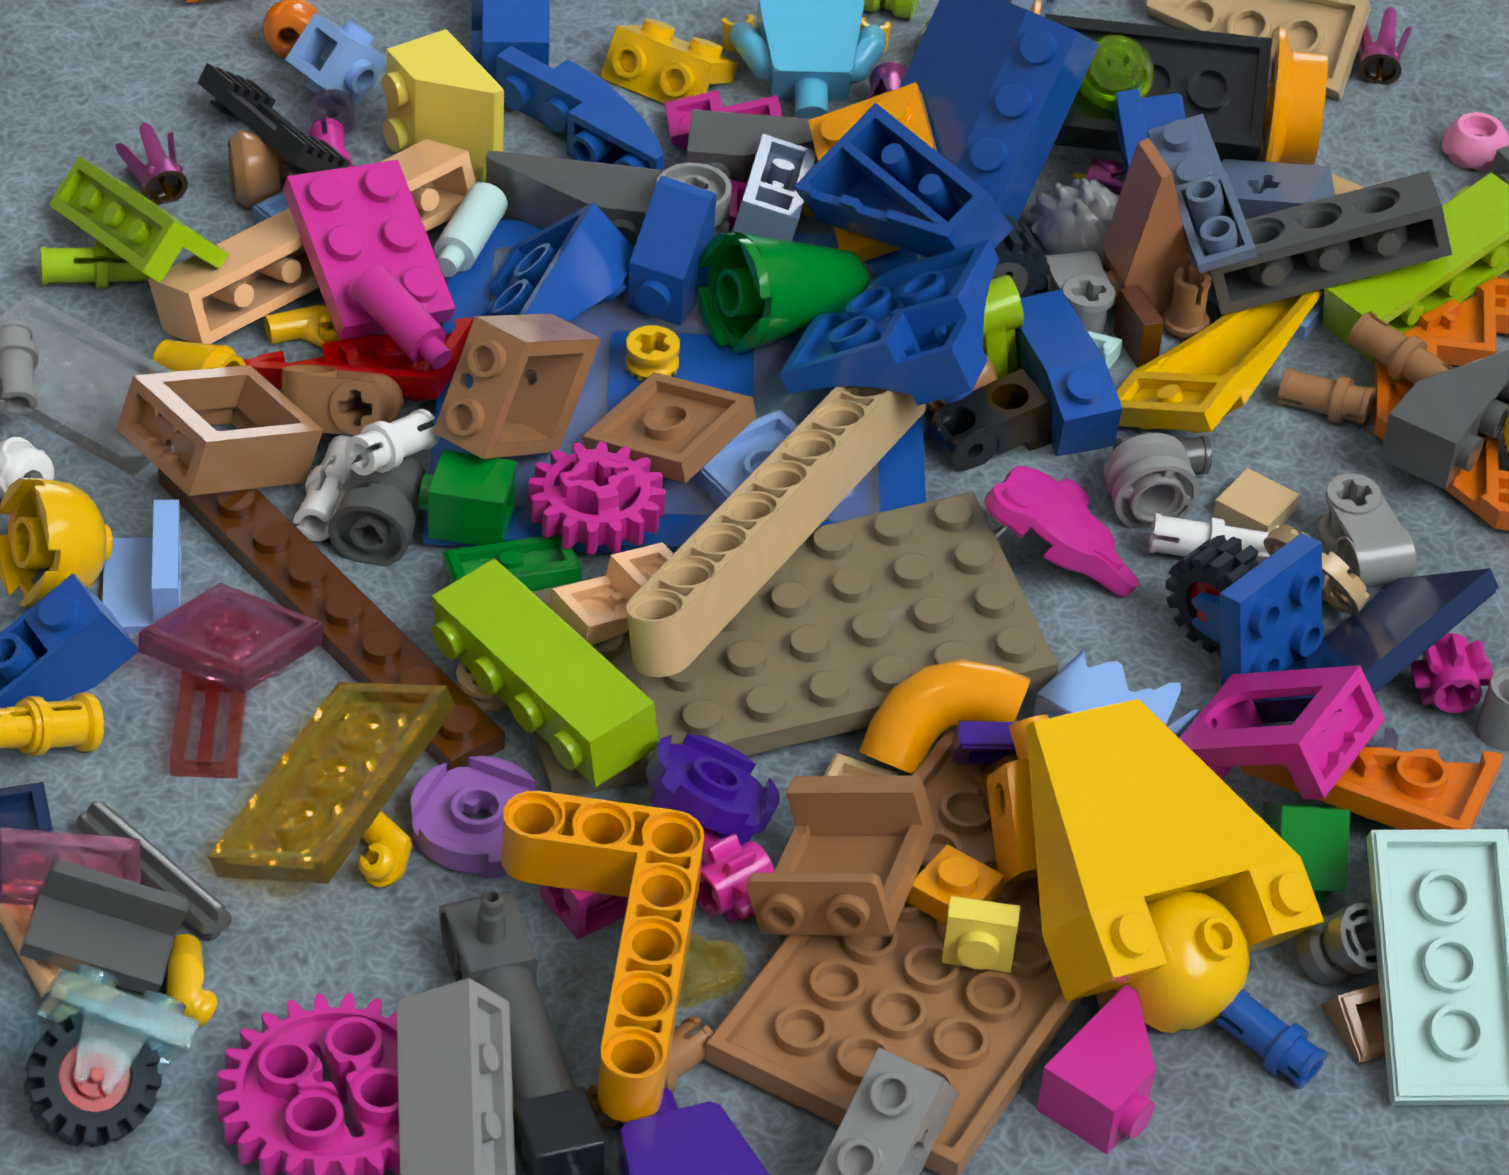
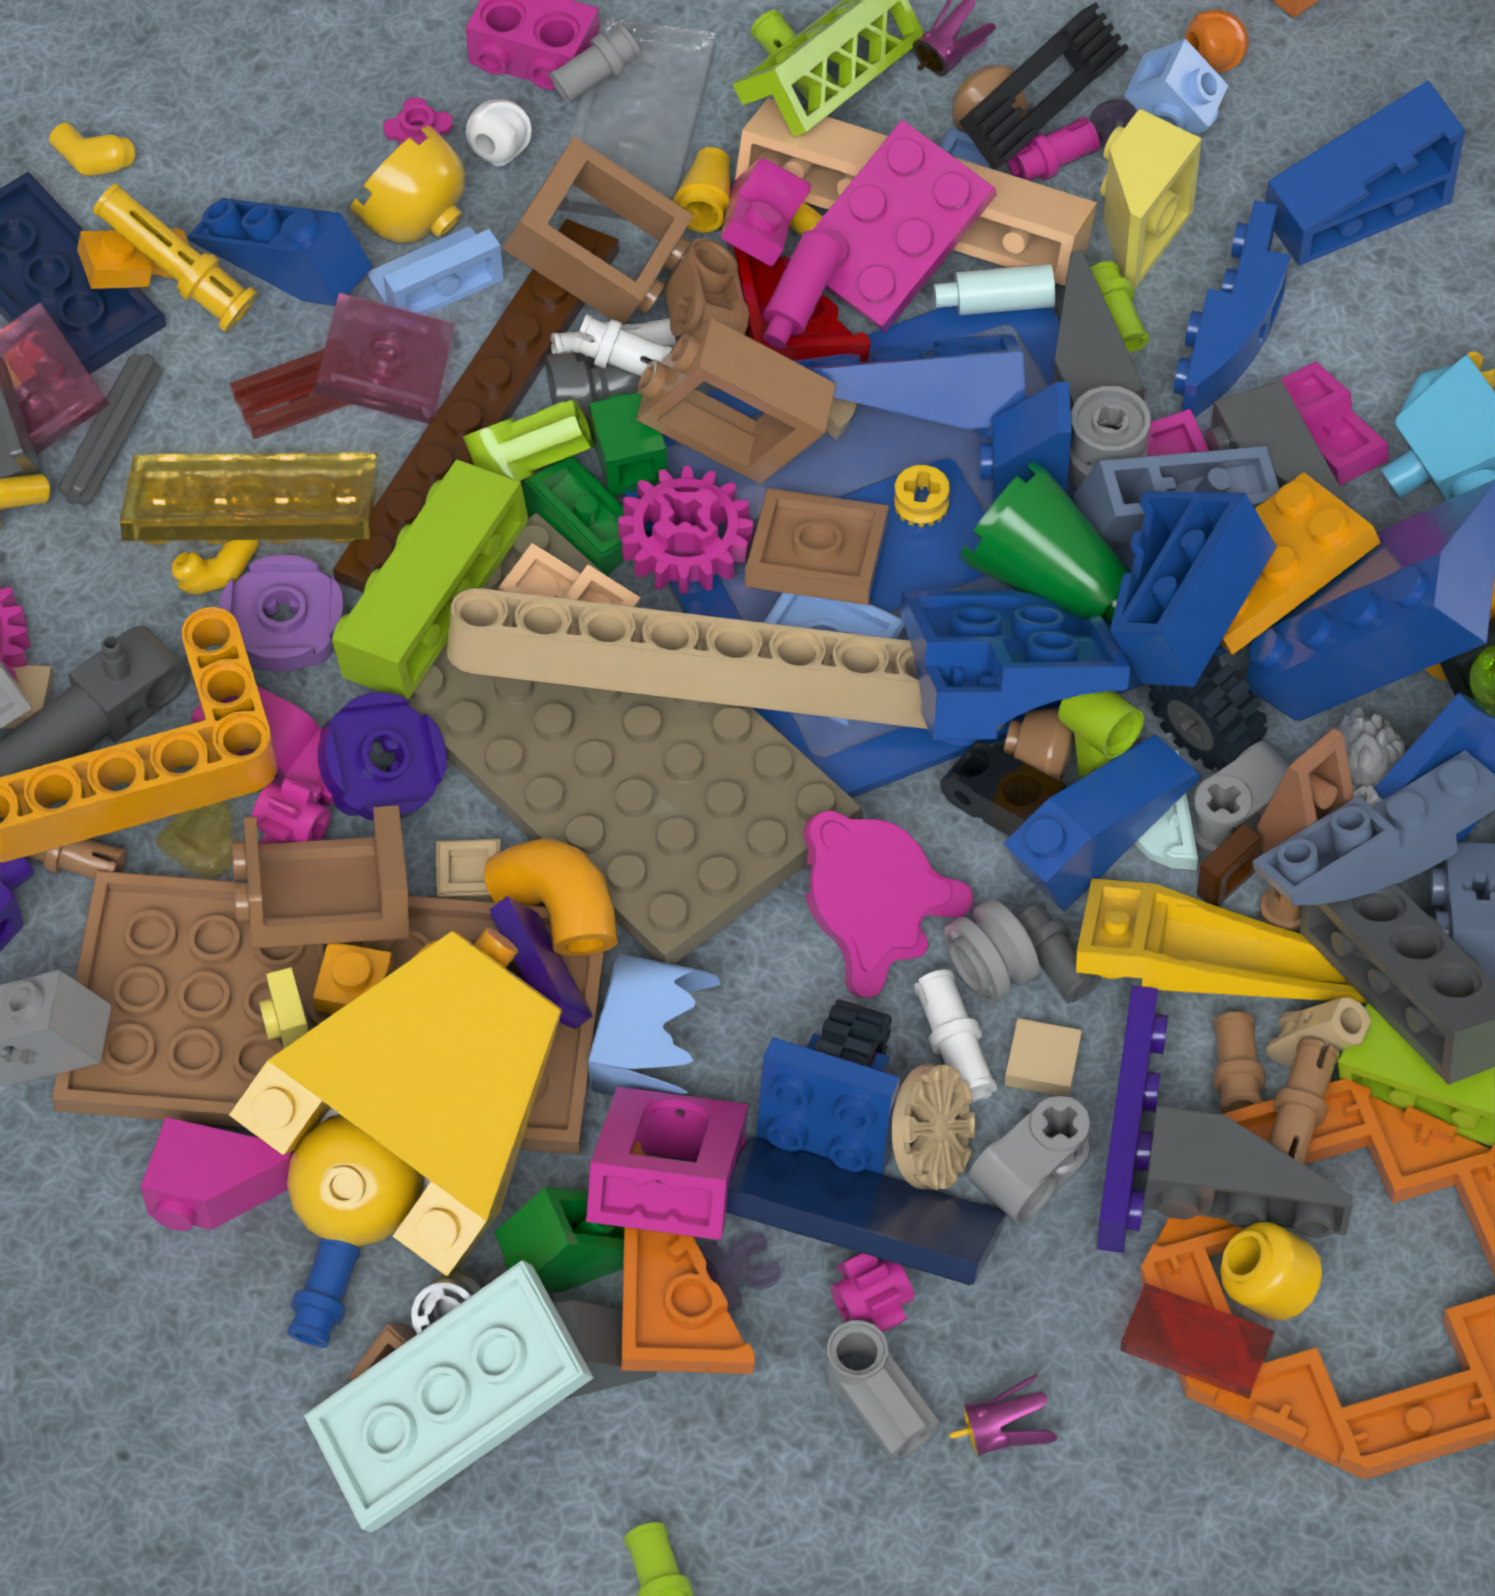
camera: 70 degrees right, 15 degrees up
(264, 321) = (762, 208): none -> dark pink slope
(418, 564) = (532, 442): none -> lime piece
(663, 66) = (1381, 336): yellow bracket -> none
(1320, 453) = (1128, 1144): none -> dark purple plate
(1334, 323) = (1336, 1022): none -> tan bar

